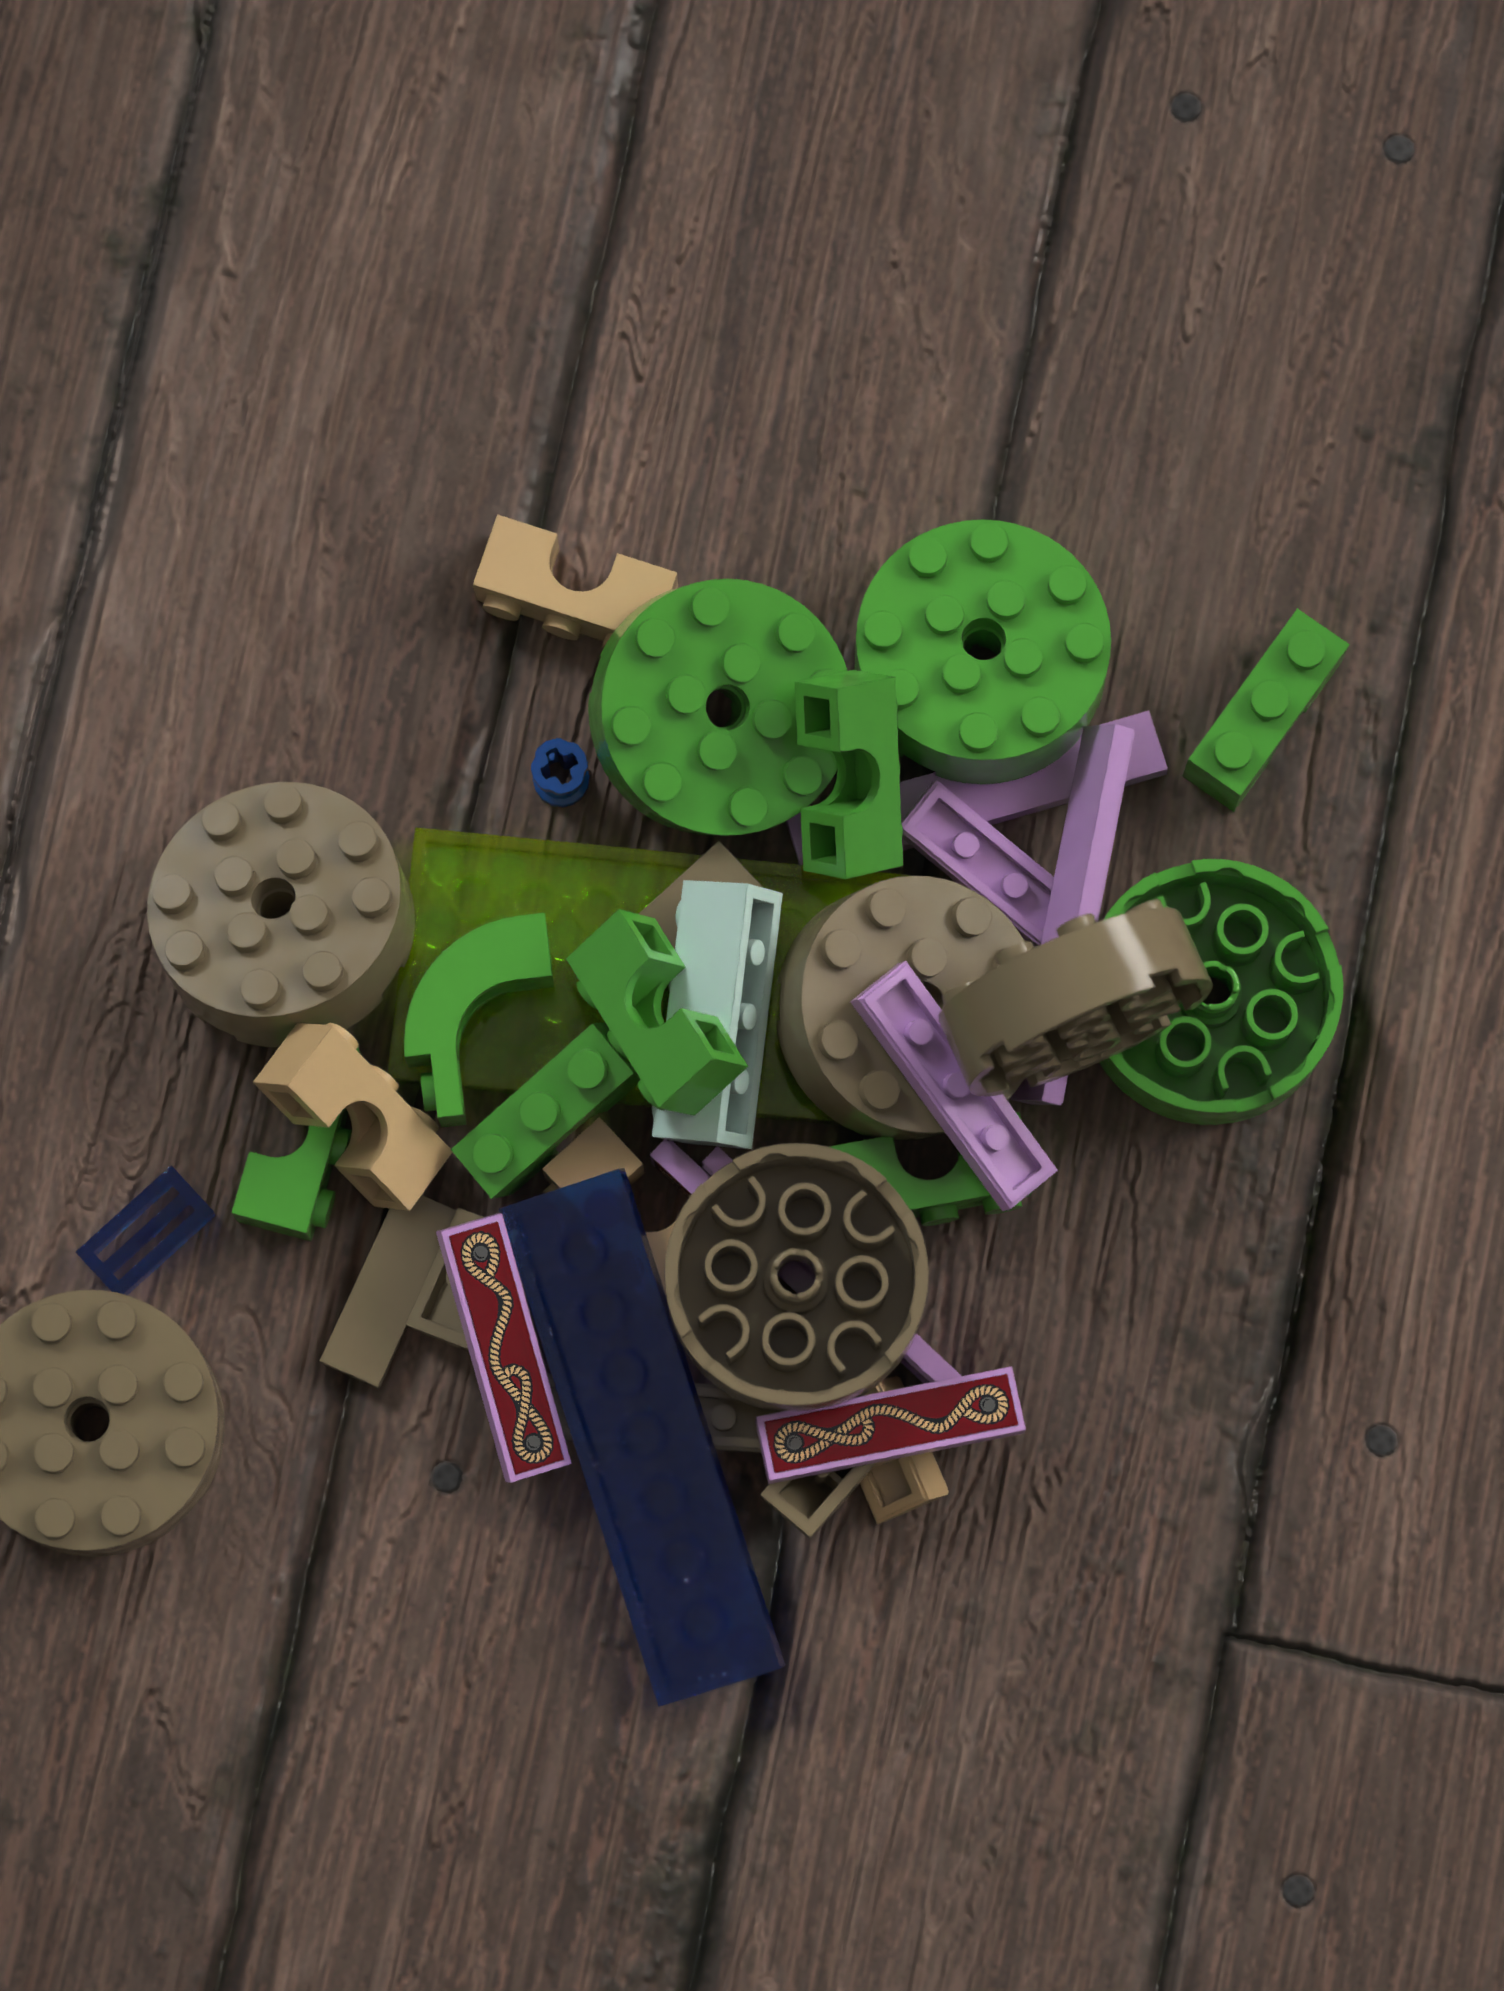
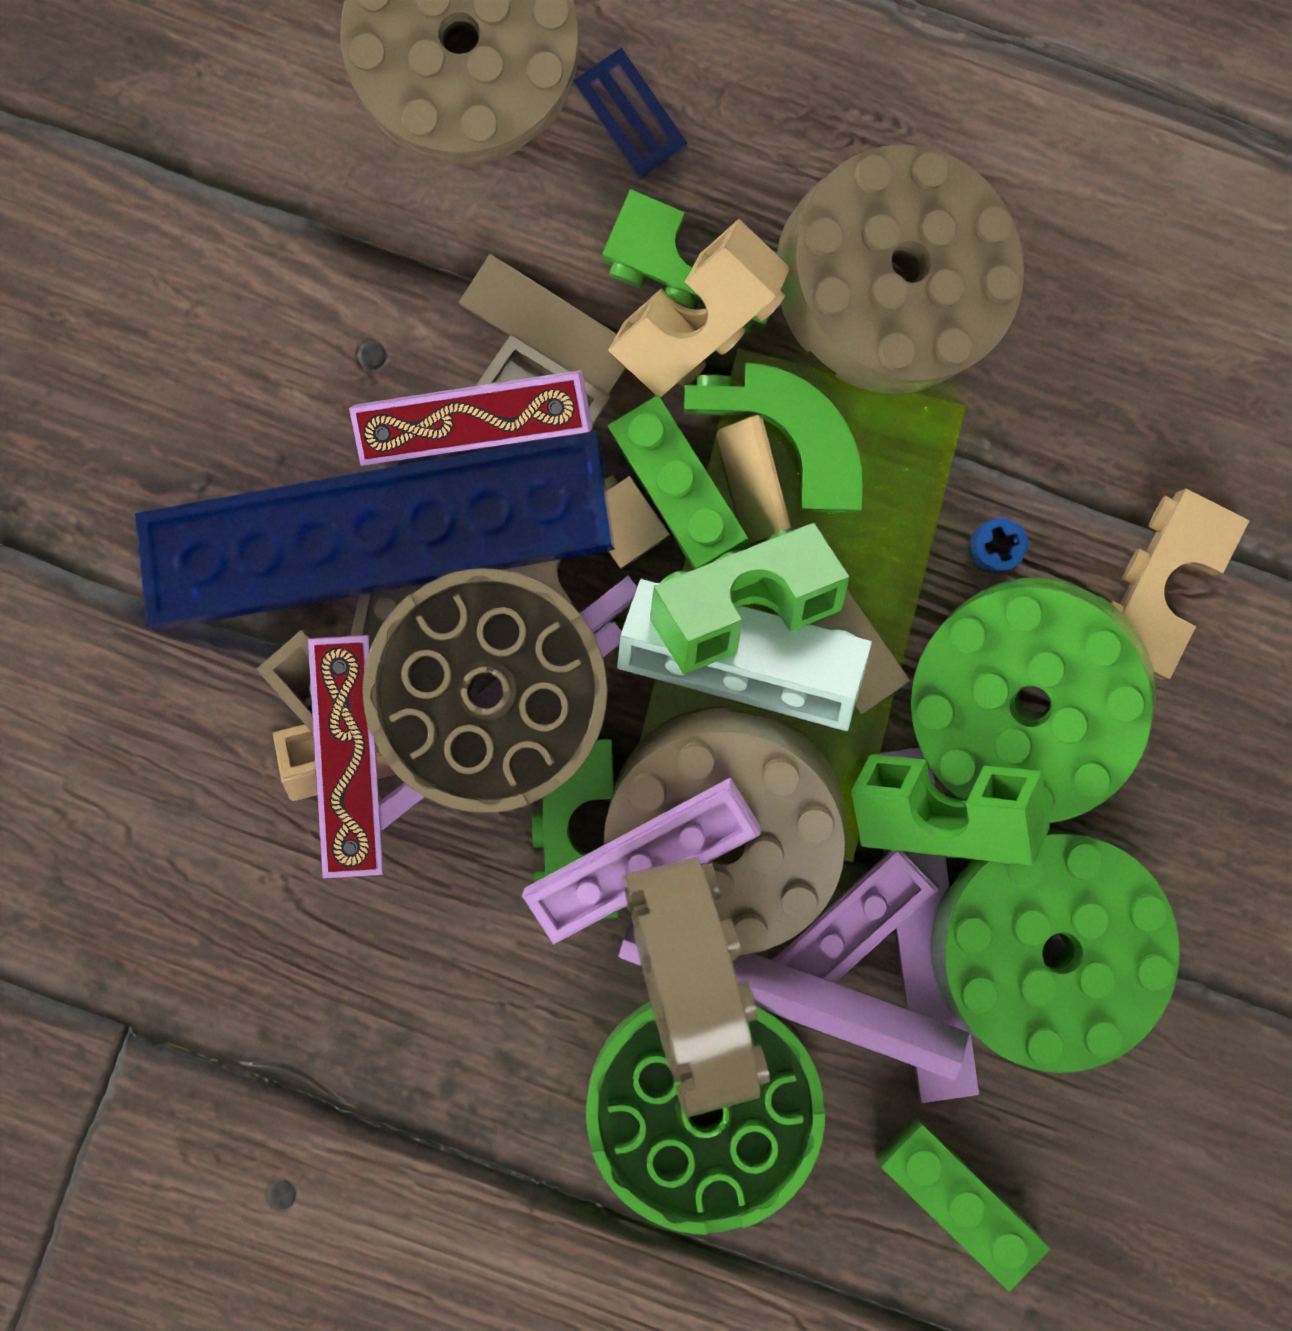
camera: 100 degrees right, 10 degrees up
(525, 1035) = (753, 478): none -> tan slope

